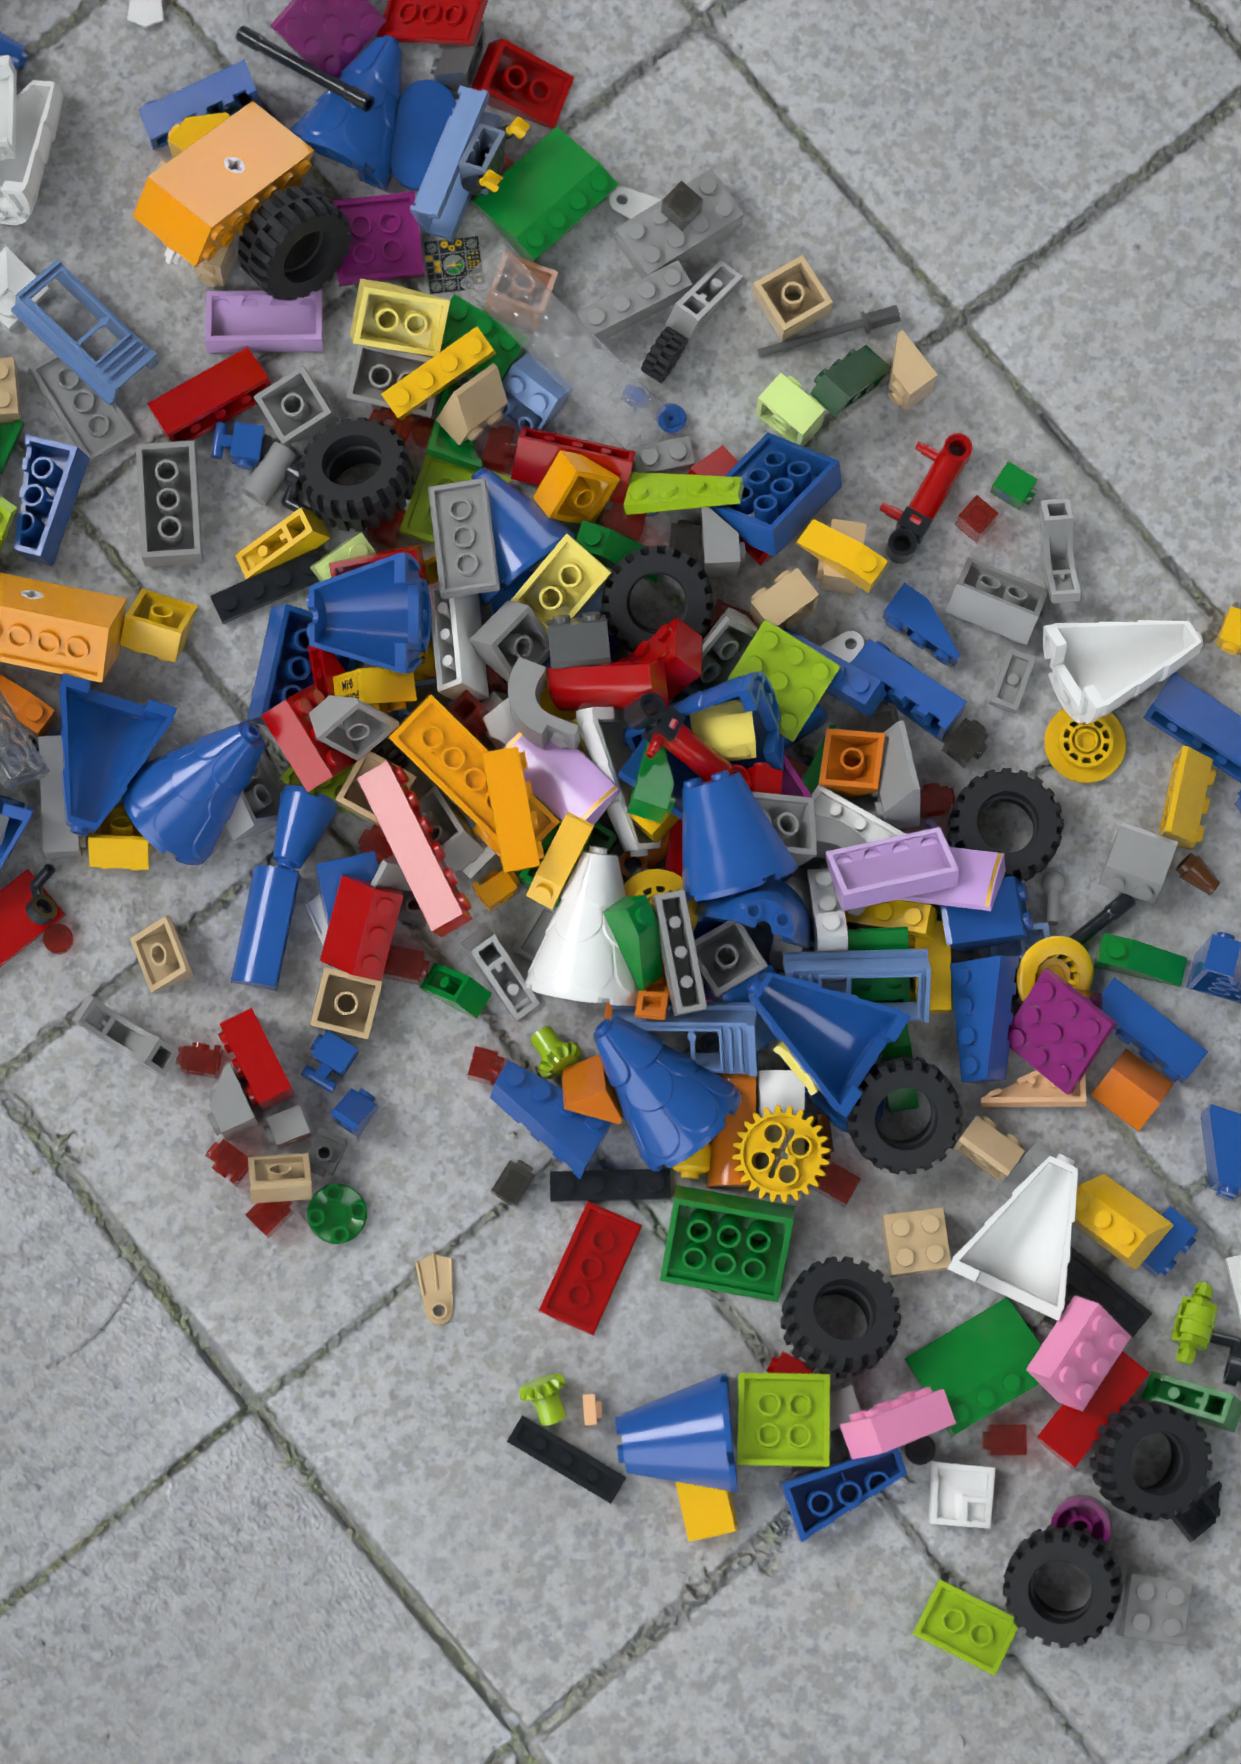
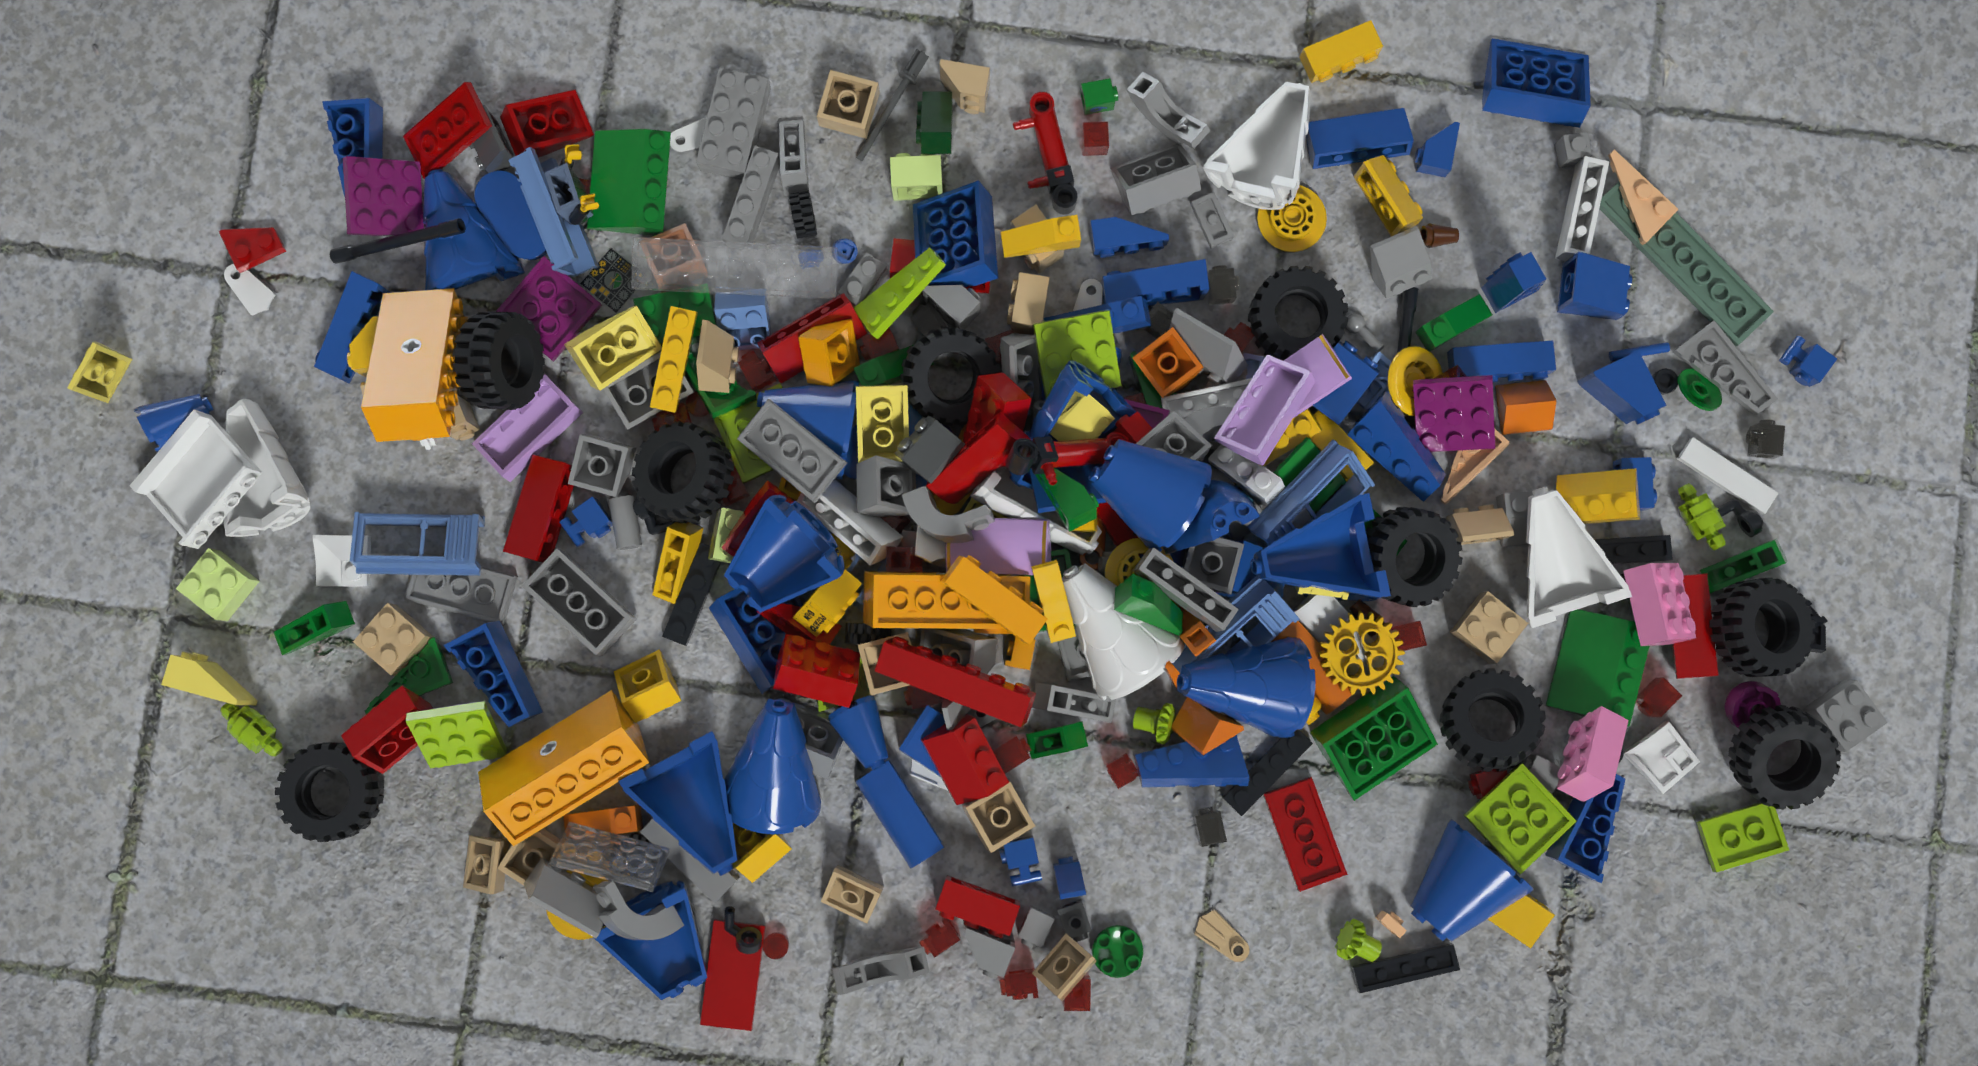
camera: 40 degrees left, 5 degrees up
(350, 725) = (837, 642): light grey slope -> none
(681, 205) = (725, 107): clear smoke brick -> none

